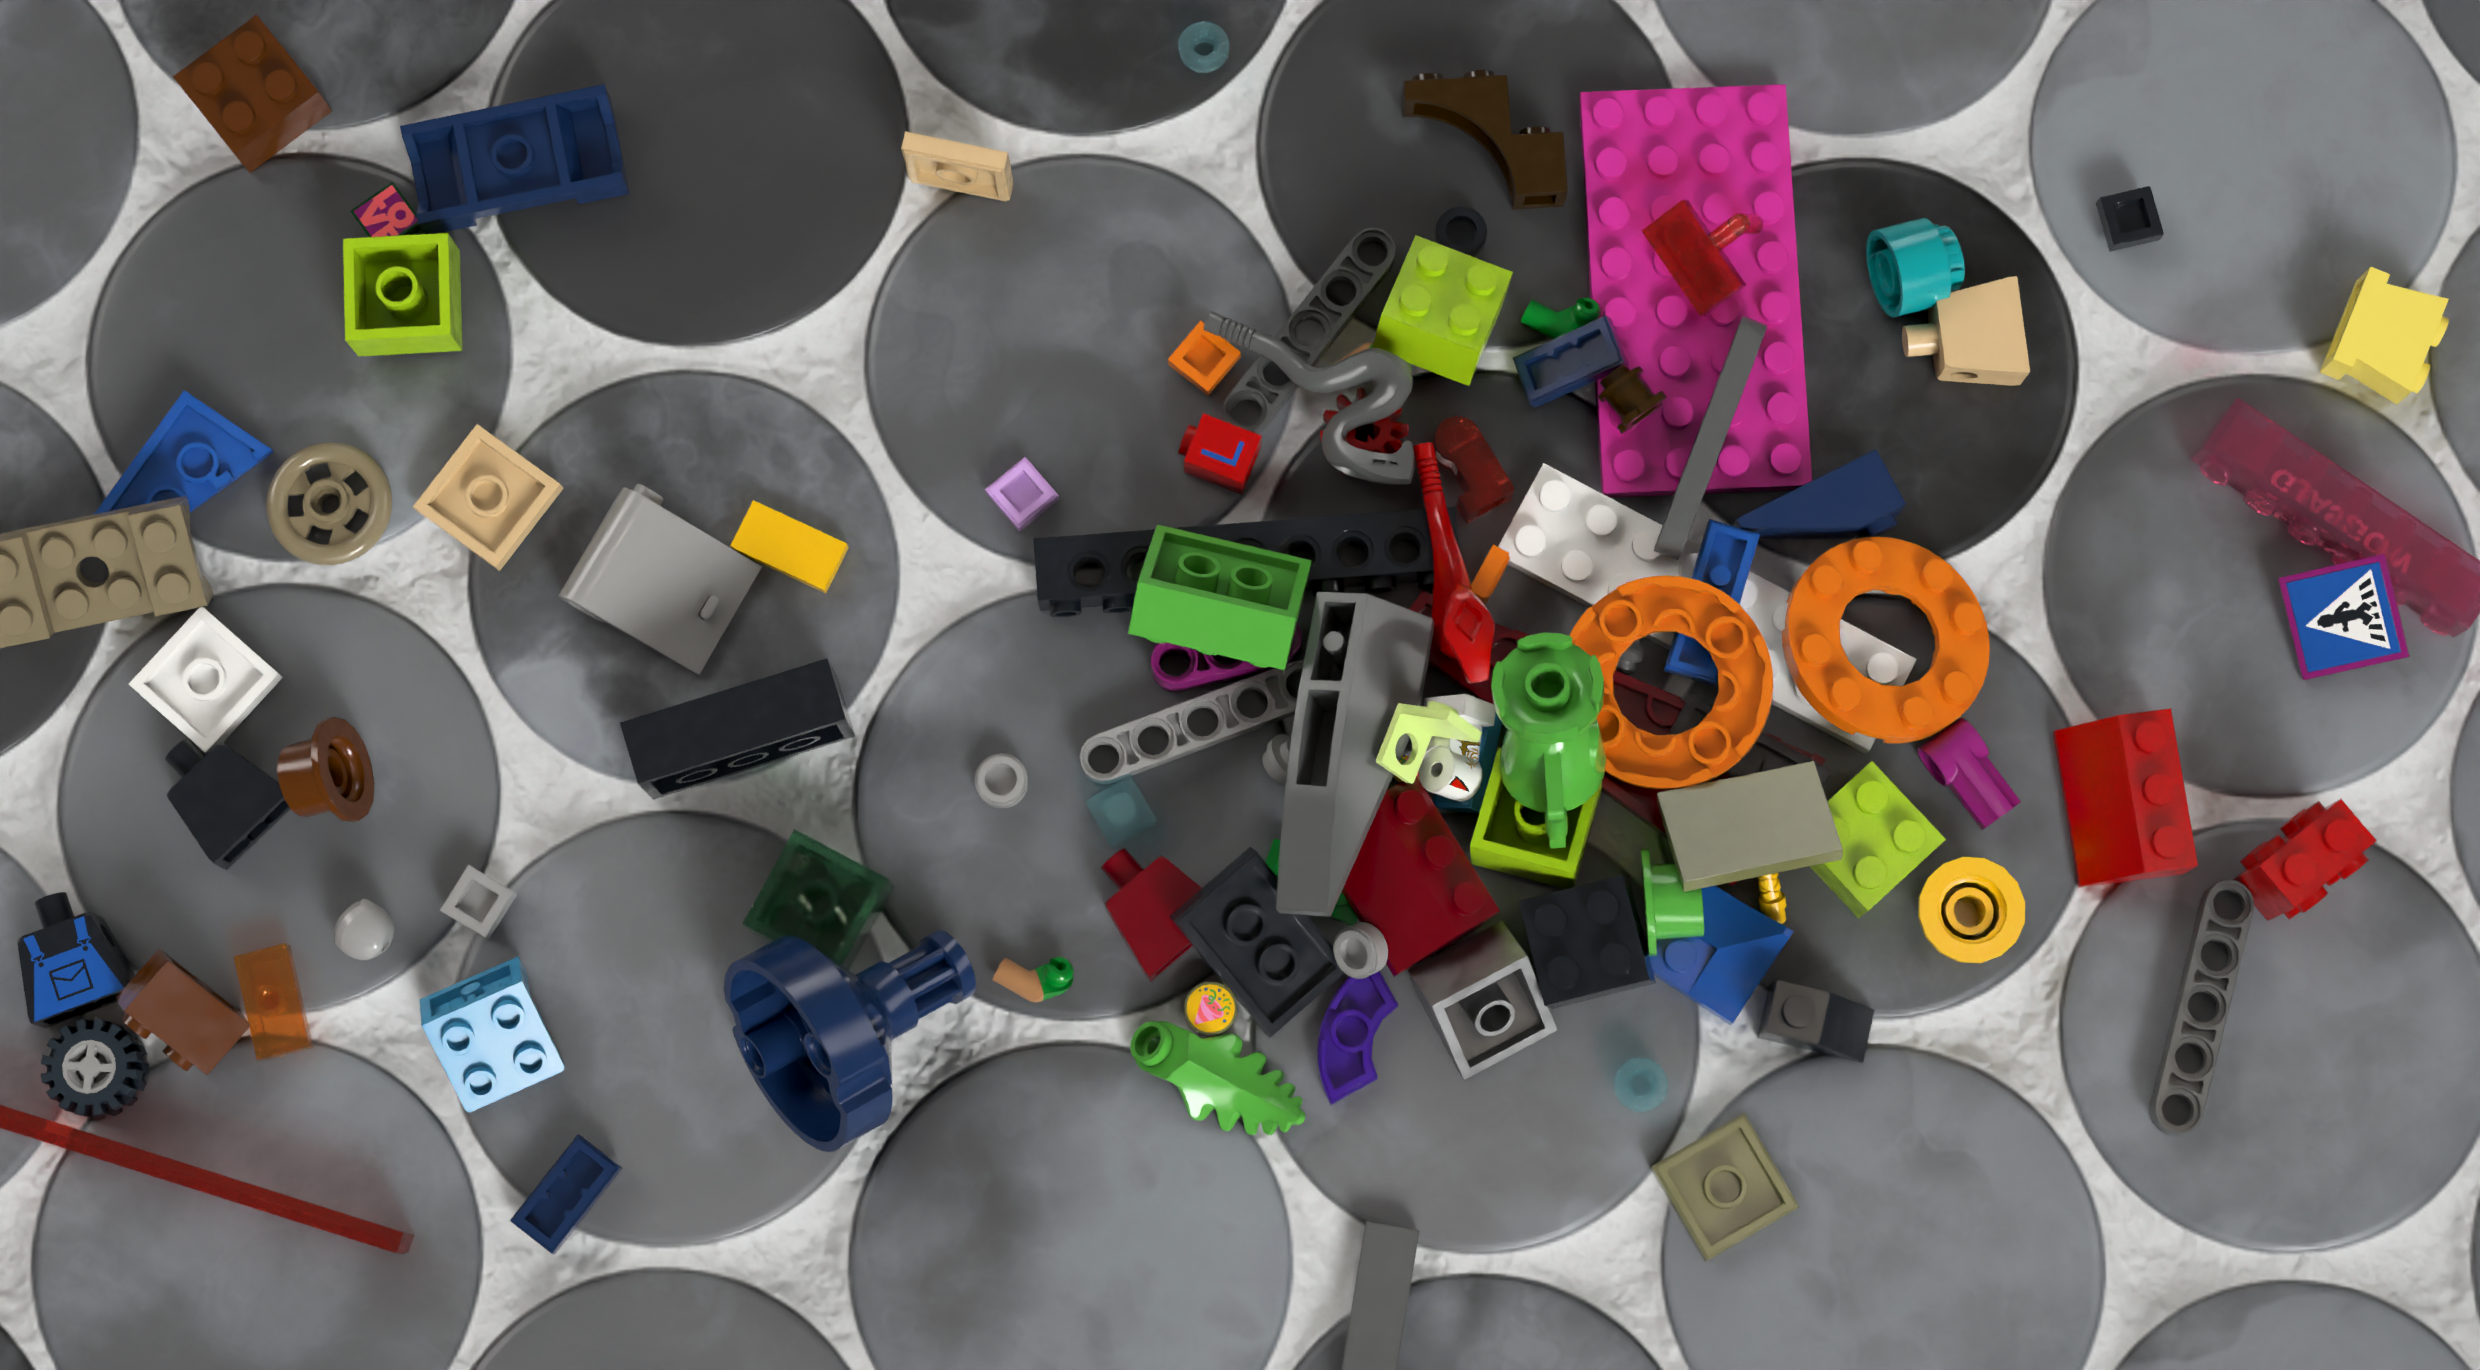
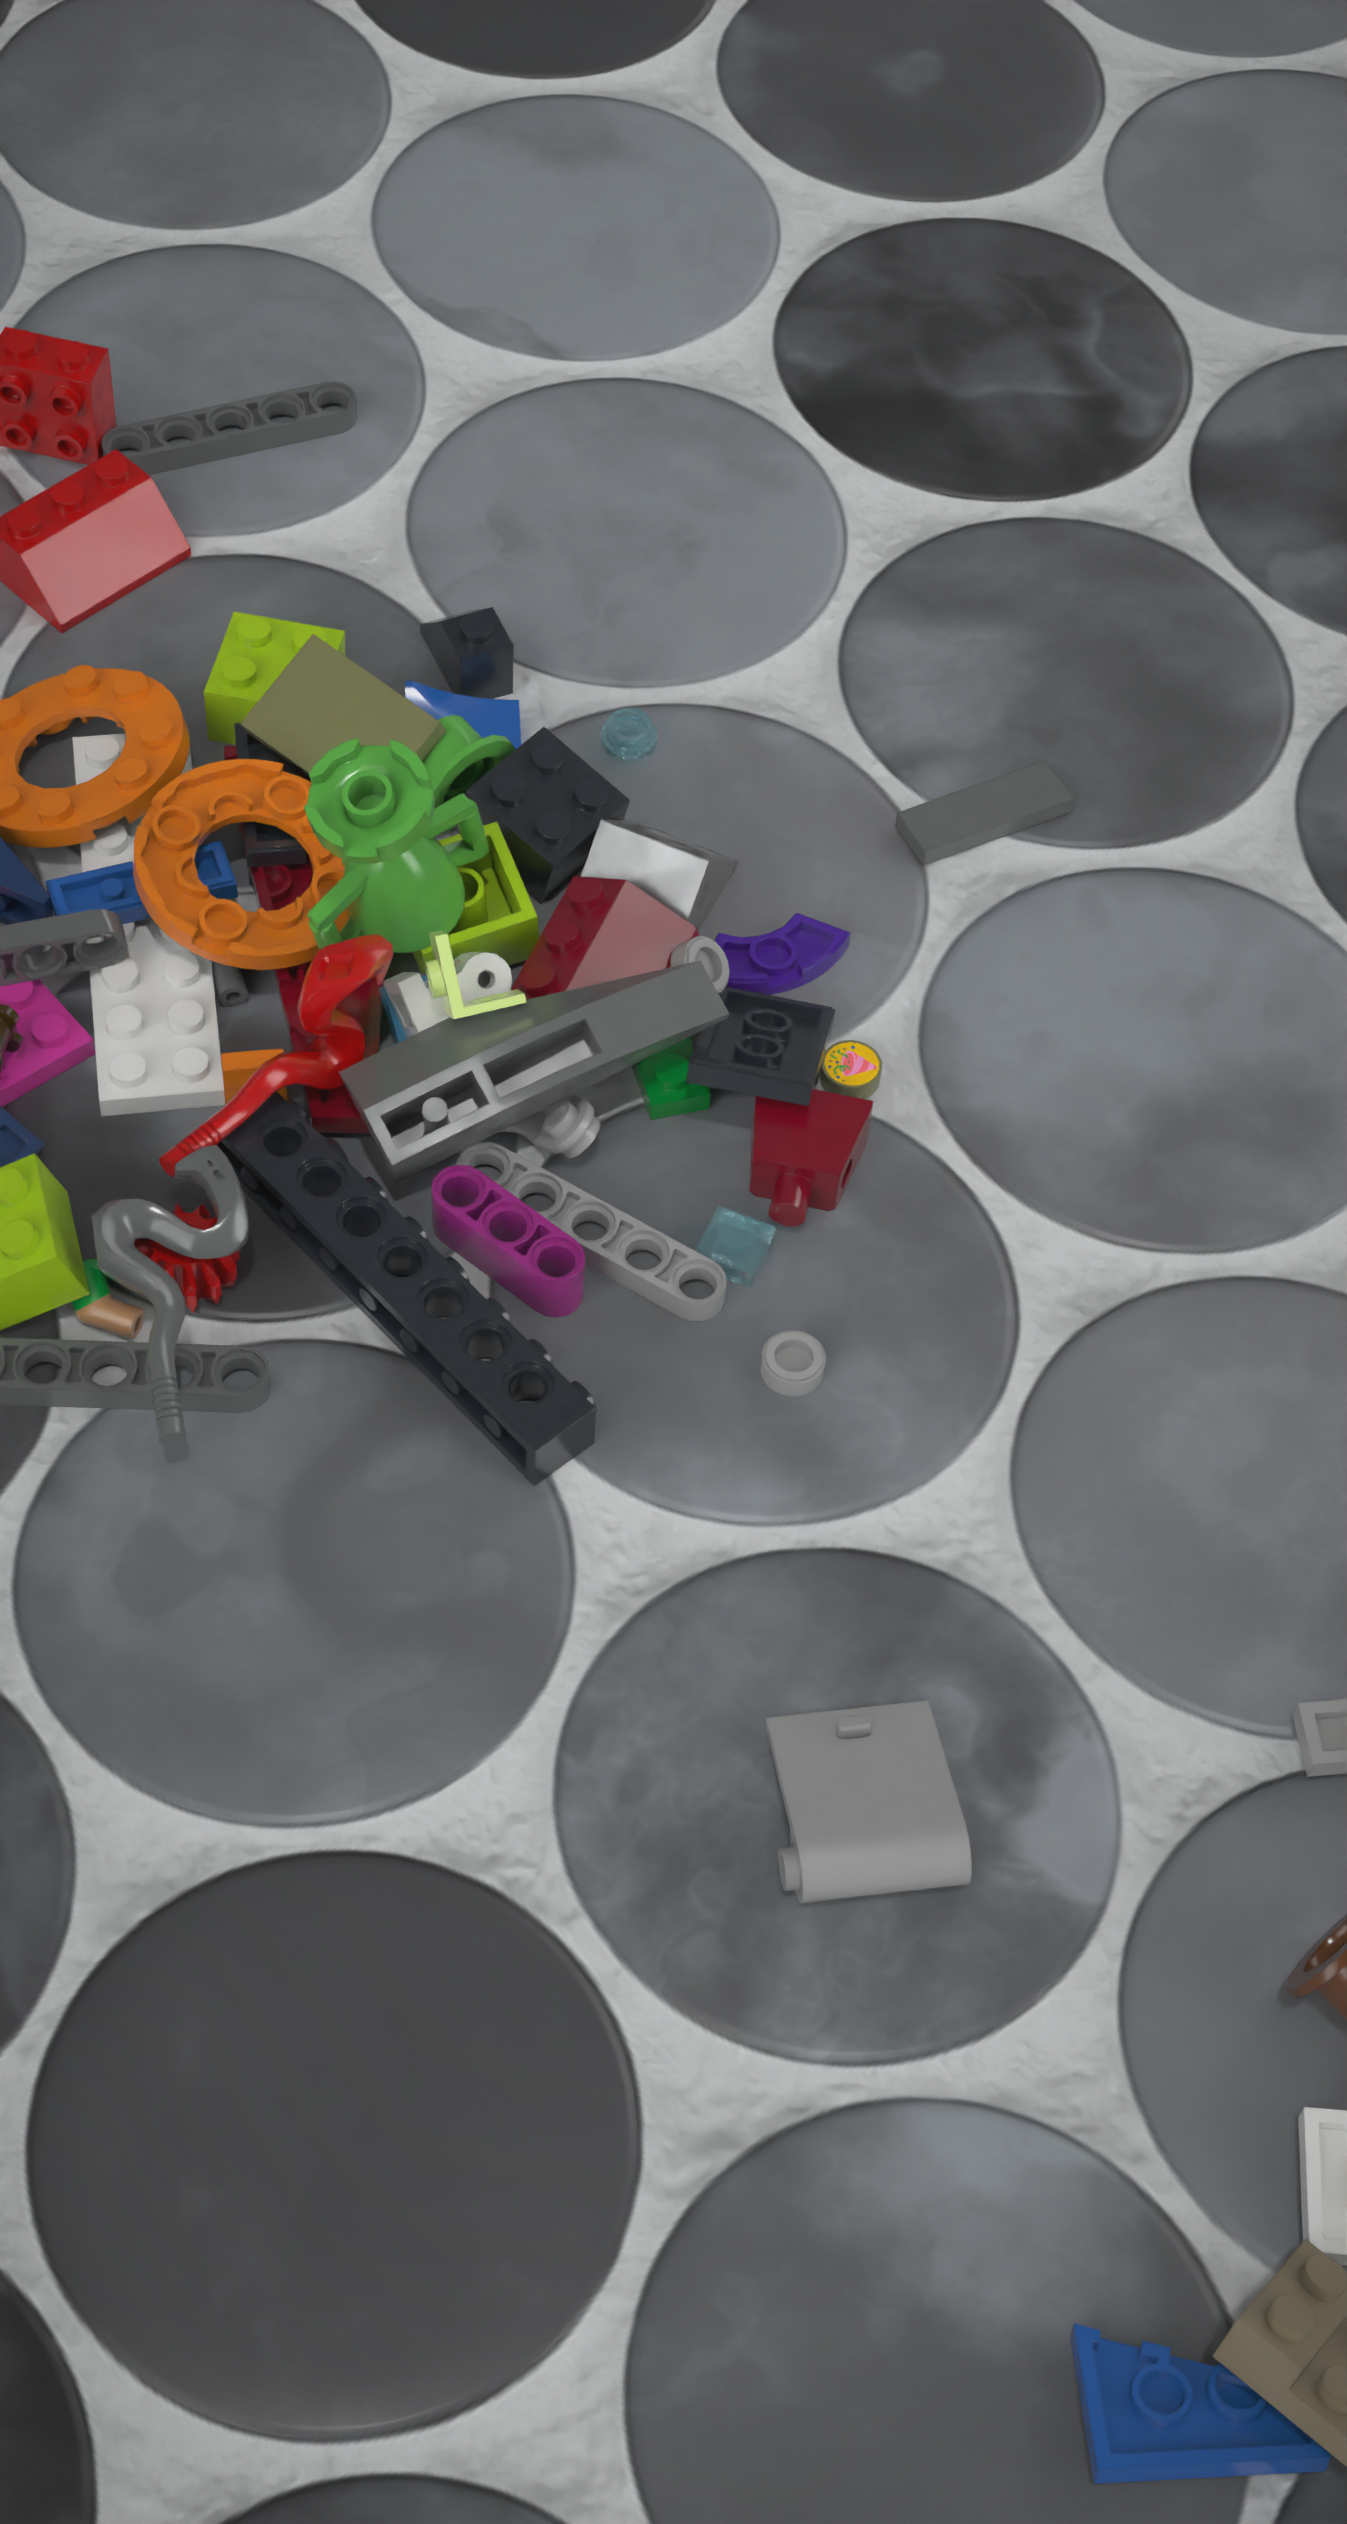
camera: 130 degrees left, 25 degrees down
(293, 480) = (1106, 2159): dark tan plate -> none
(386, 214) = (698, 2413): tile -> none
(402, 294) = (782, 2292): lime brick -> none
(488, 497) = (927, 2039): tan plate -> none
(515, 158) = (521, 2299): dark blue piece -> none
(737, 729) = (958, 1587): black brick -> none
(789, 546) = (723, 1704): yellow tile -> none
(819, 899) = (1058, 1413): clear green brick -> none
(826, 1035) = (1179, 1285): dark blue piece -> none
(957, 166) = (174, 1783): tan tile -> none
(1022, 494) = (487, 1527): lavender tile -> none
(1038, 983) = (953, 1213): arm -> none
(1204, 359) = (212, 1444): orange plate -> none
(1217, 1078) = (906, 1025): bright green plant -> none
(1219, 597) = (464, 1235): bright green slope -> none
(1220, 453) = (304, 1363): red brick -> none
(1467, 454) = (152, 1130): clear red leg -> none
(1724, 1187) = (661, 646): olive tile -> none
(1960, 760) = (156, 642): magenta piece -> none
(1971, 910) = (282, 578): yellow piece -> none

